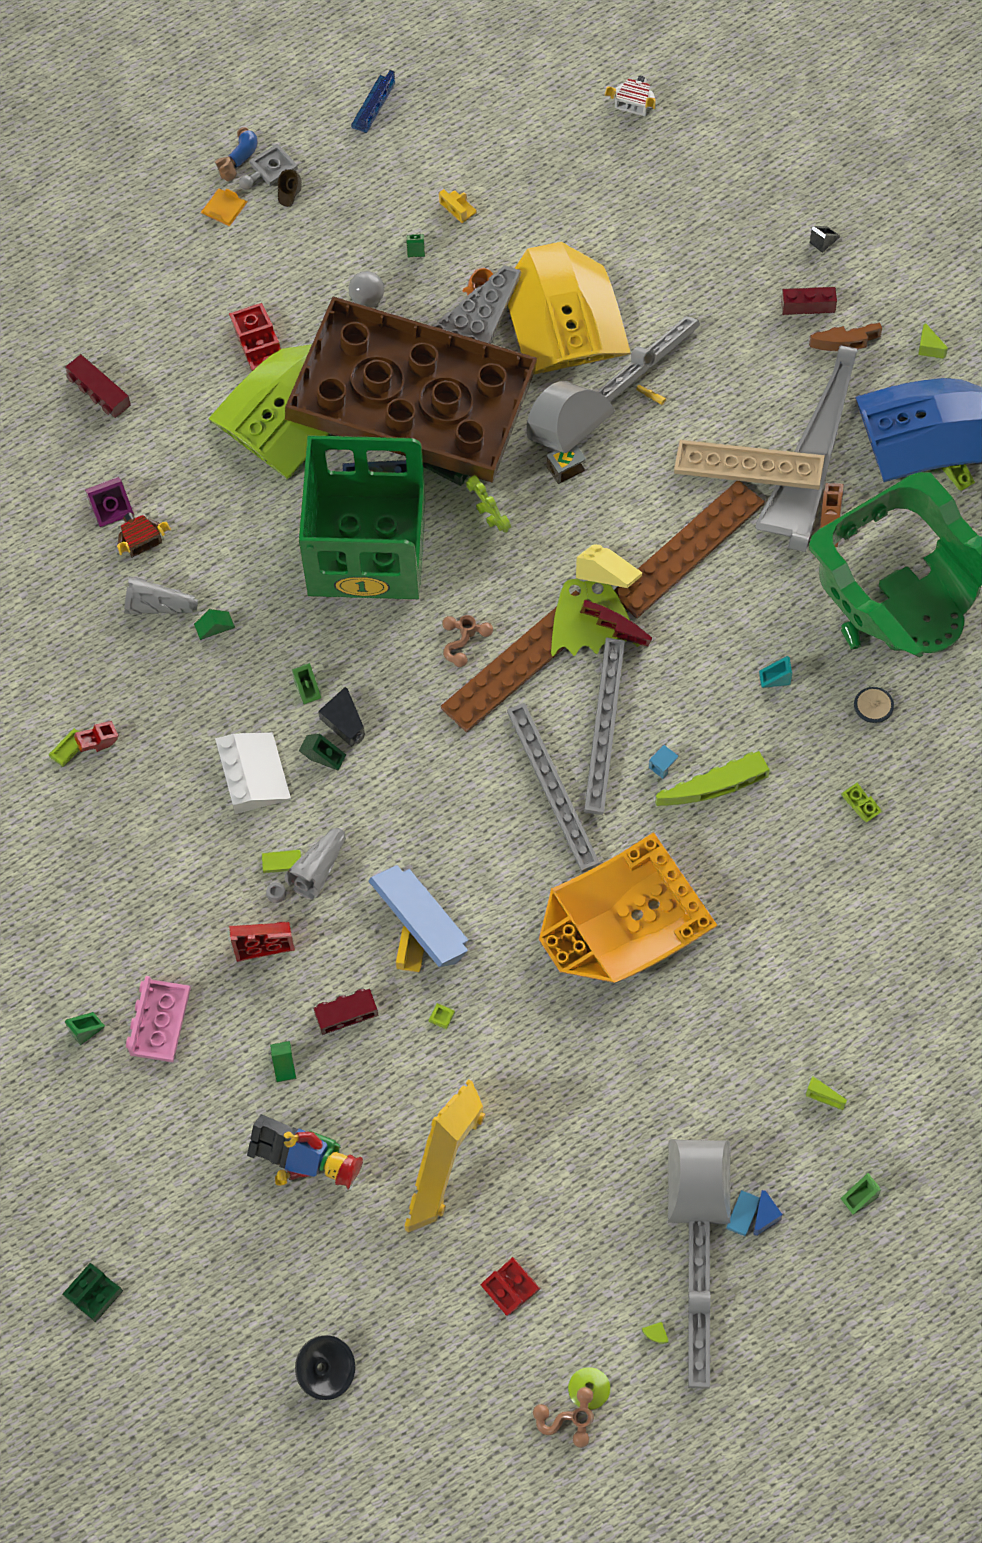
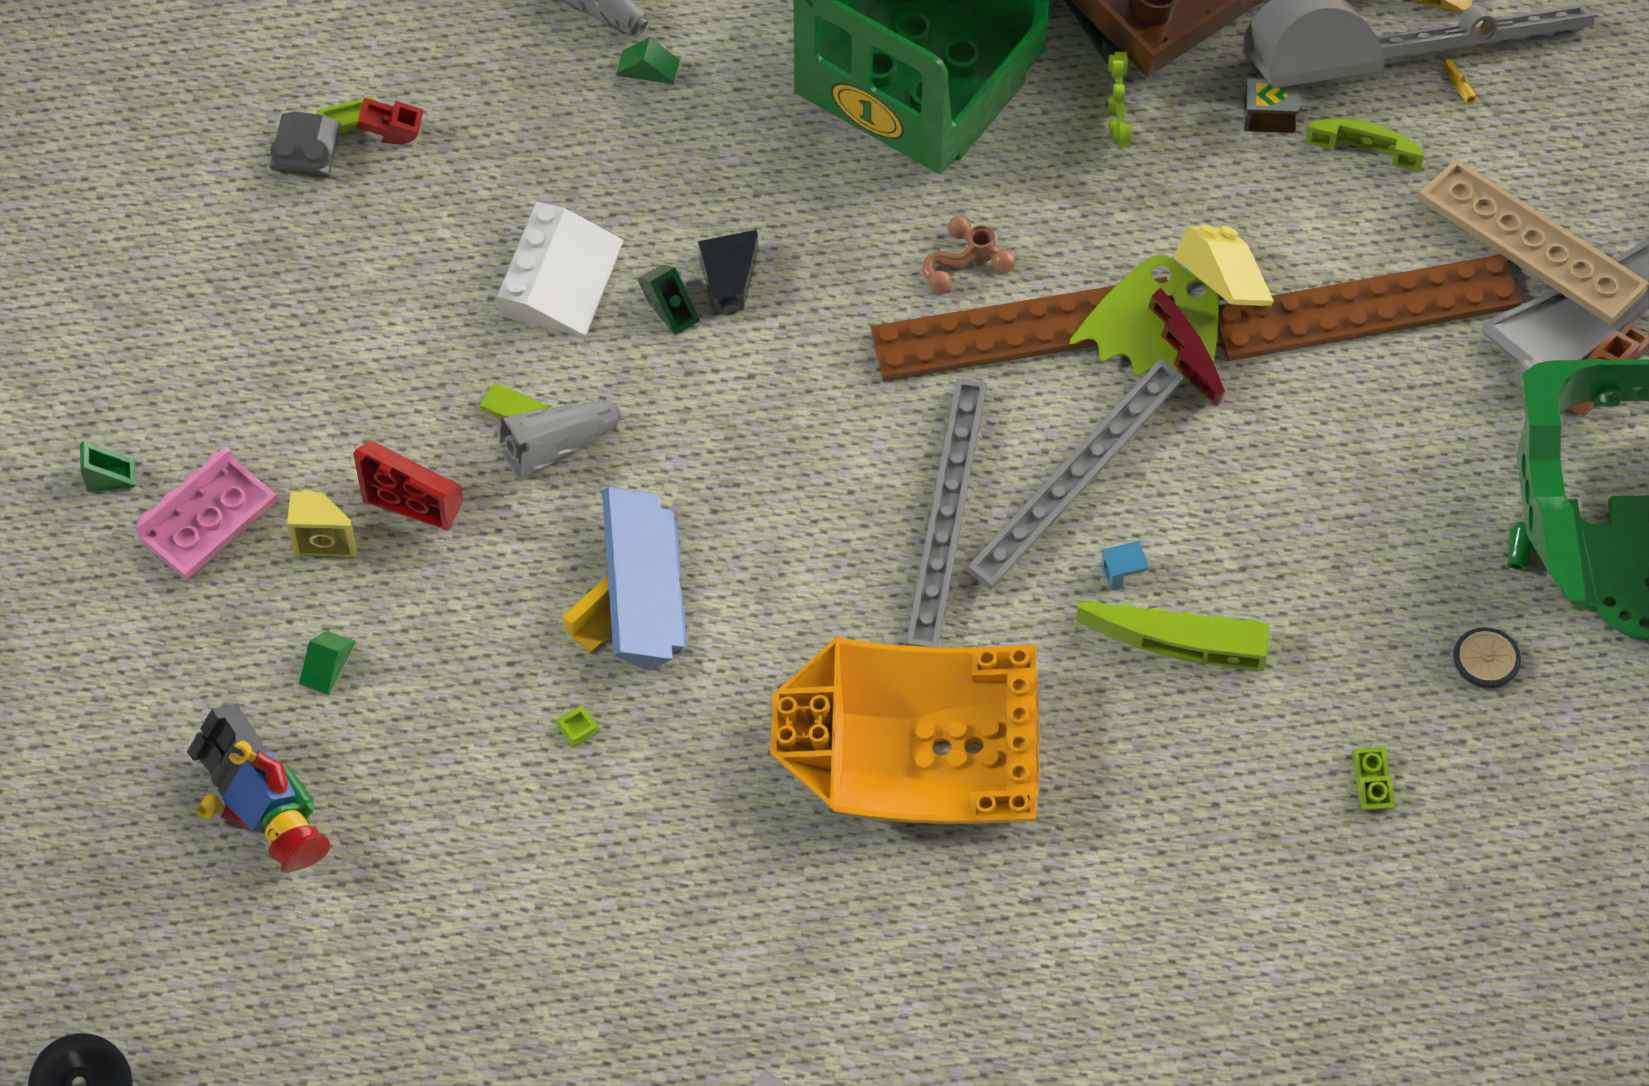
camera: 30 degrees right, 5 degrees down
(57, 777) = (305, 144): none -> dark grey slope
(229, 989) = (319, 526): none -> light yellow slope
(276, 892) = (477, 443): light grey tile -> none
(306, 683) = (710, 199): bright green slope -> none
(345, 1011) = (453, 644): dark red brick -> none
(447, 1133) = (418, 881): yellow wedge -> none
(650, 450) = (1368, 136): none -> lime slope
(777, 673) = (1373, 538): teal slope -> none

